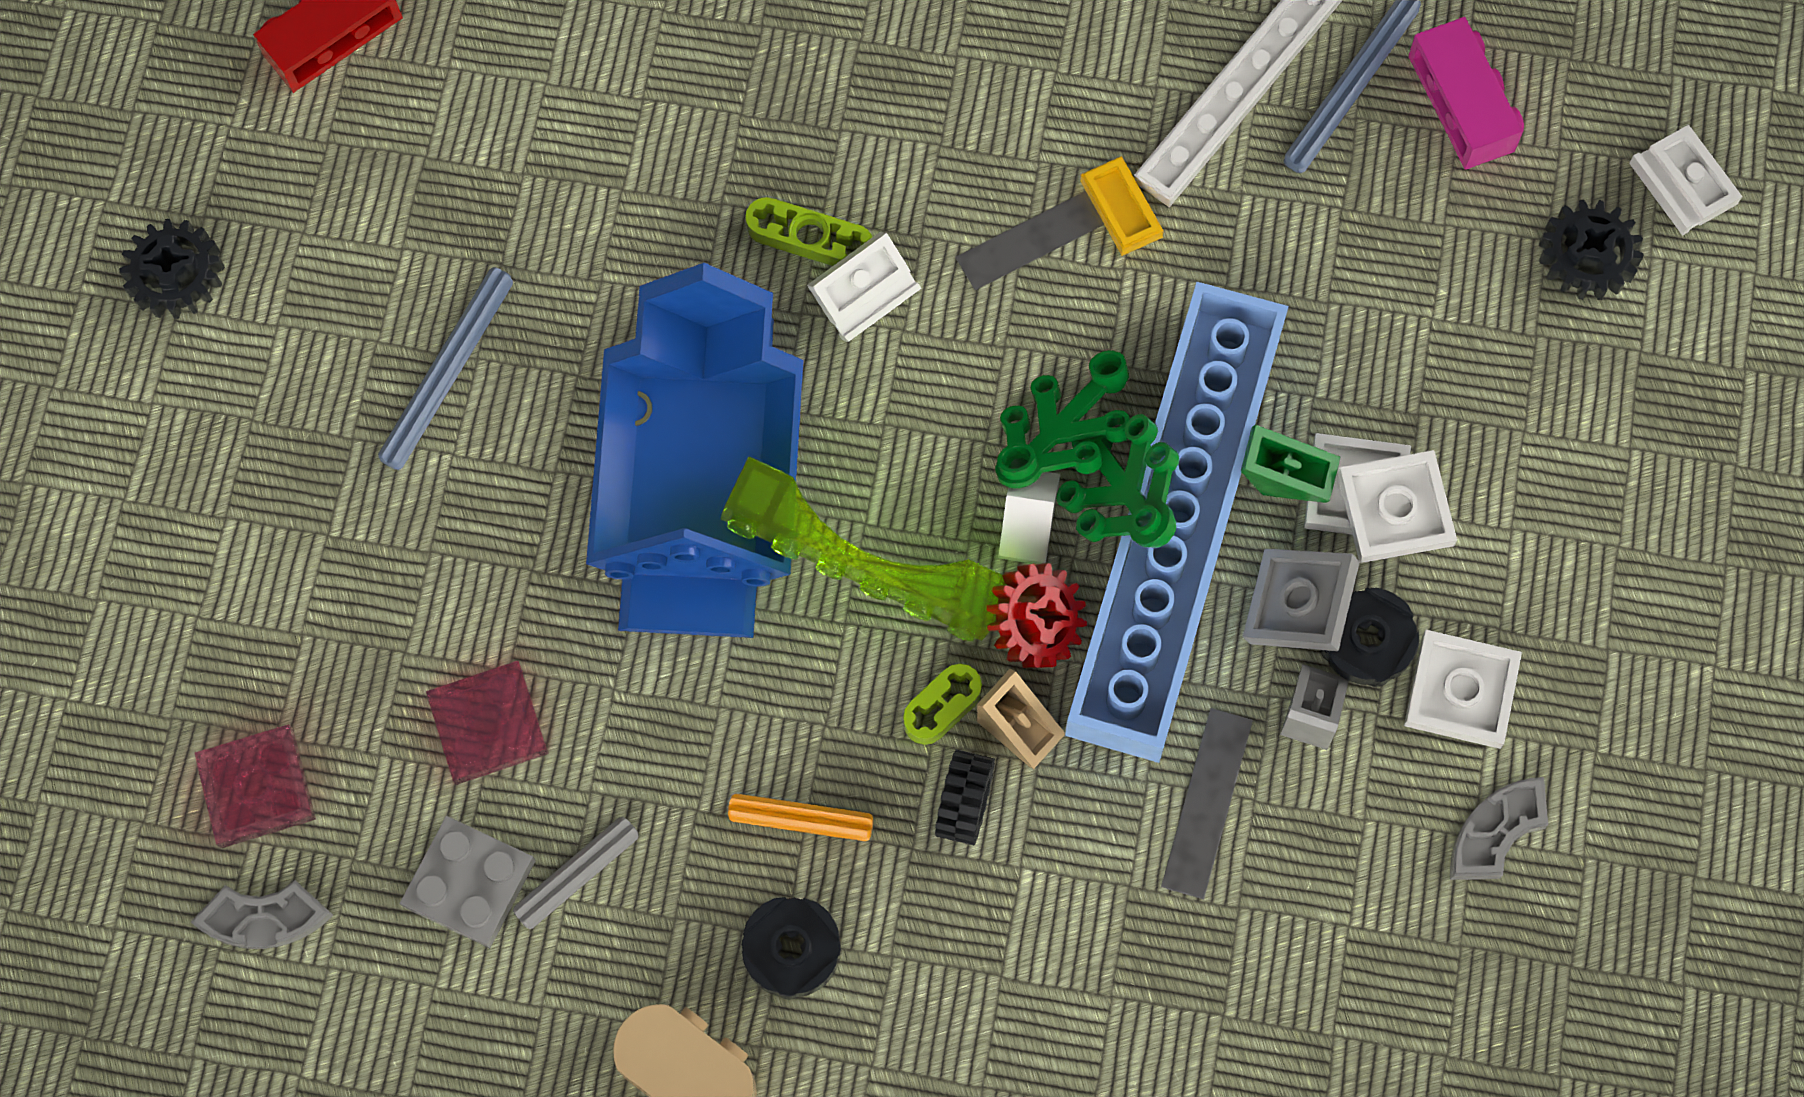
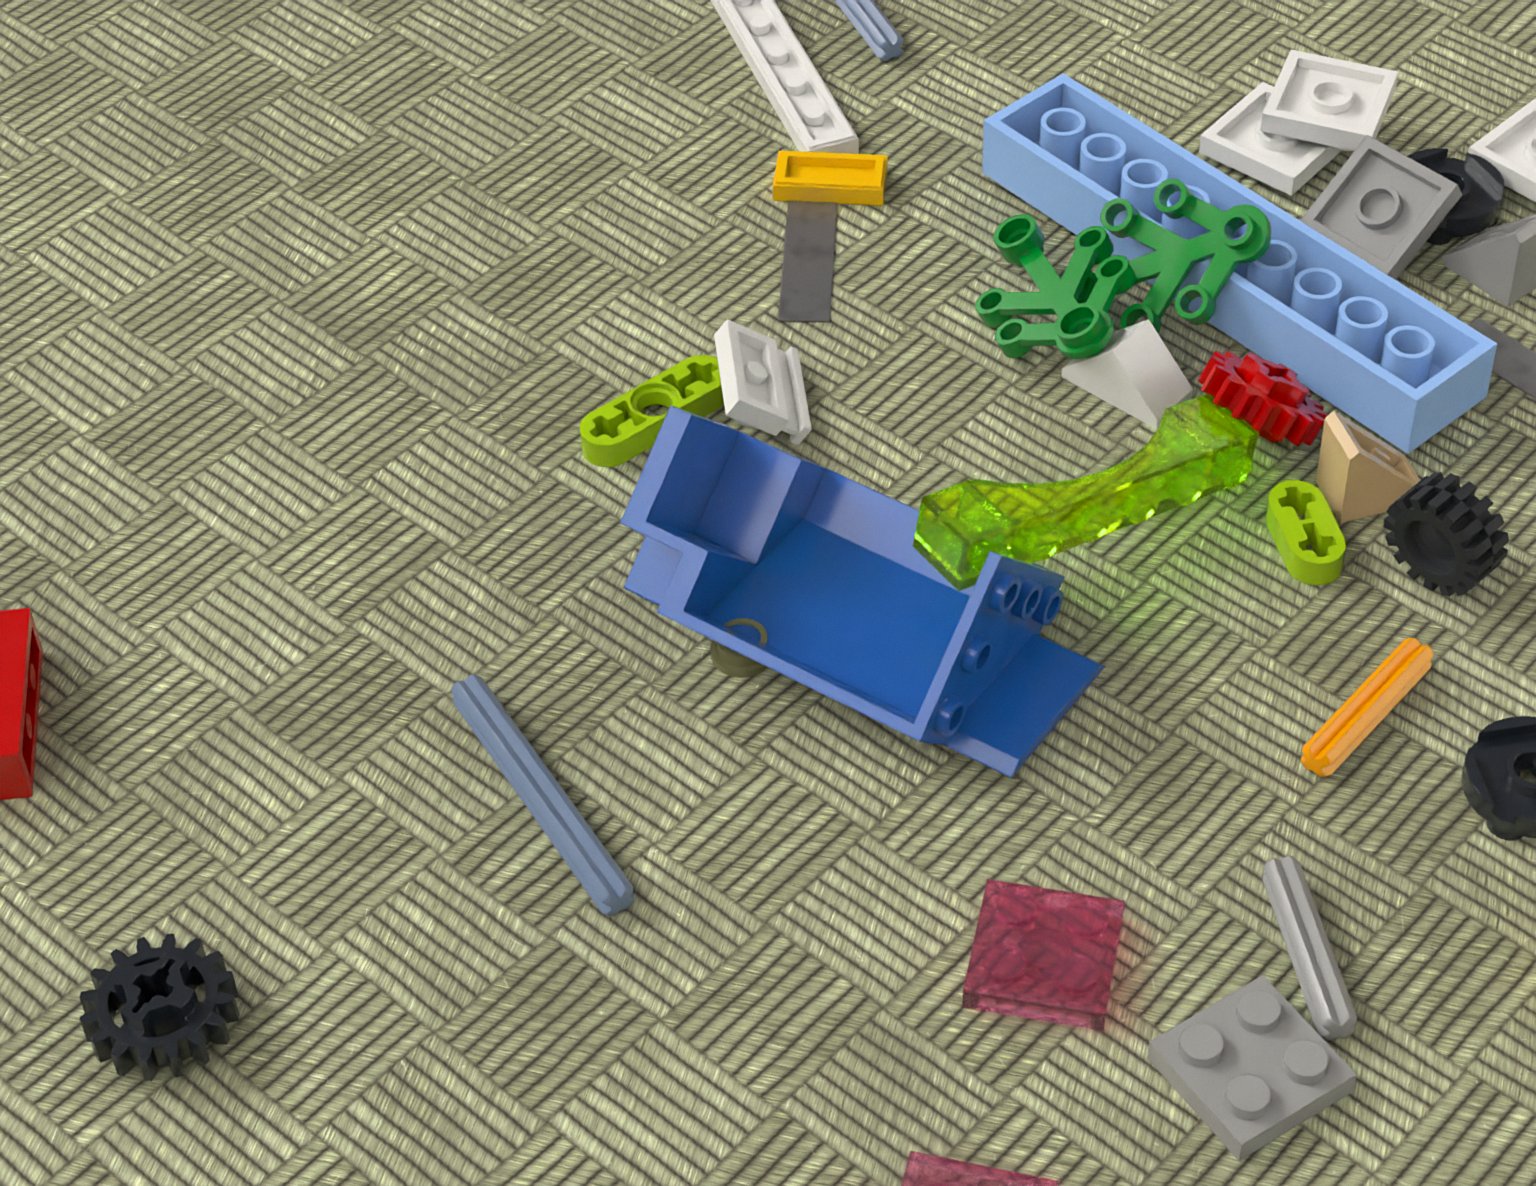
camera: 60 degrees left, 25 degrees down
(1288, 467) = (1236, 148): green slope -> none

